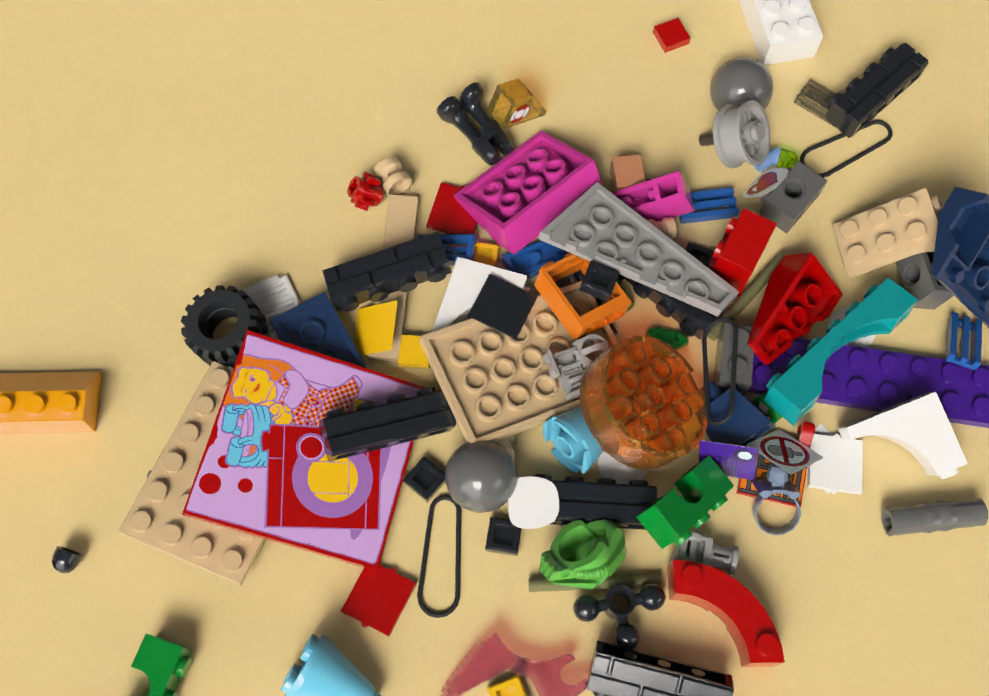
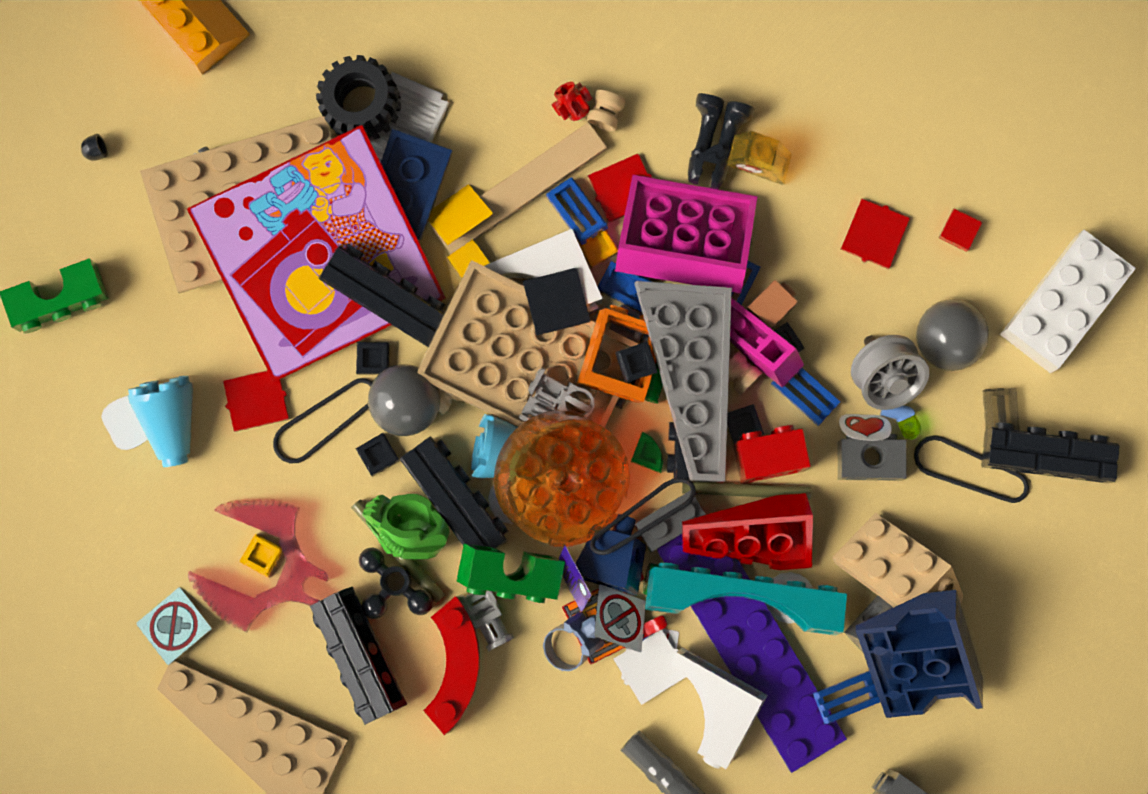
camera: 50 degrees right, 15 degrees up
(387, 272) = (511, 184): black brick -> none
(533, 503) = (414, 457): white sticker -> none
(629, 85) = (875, 233): none -> red piece

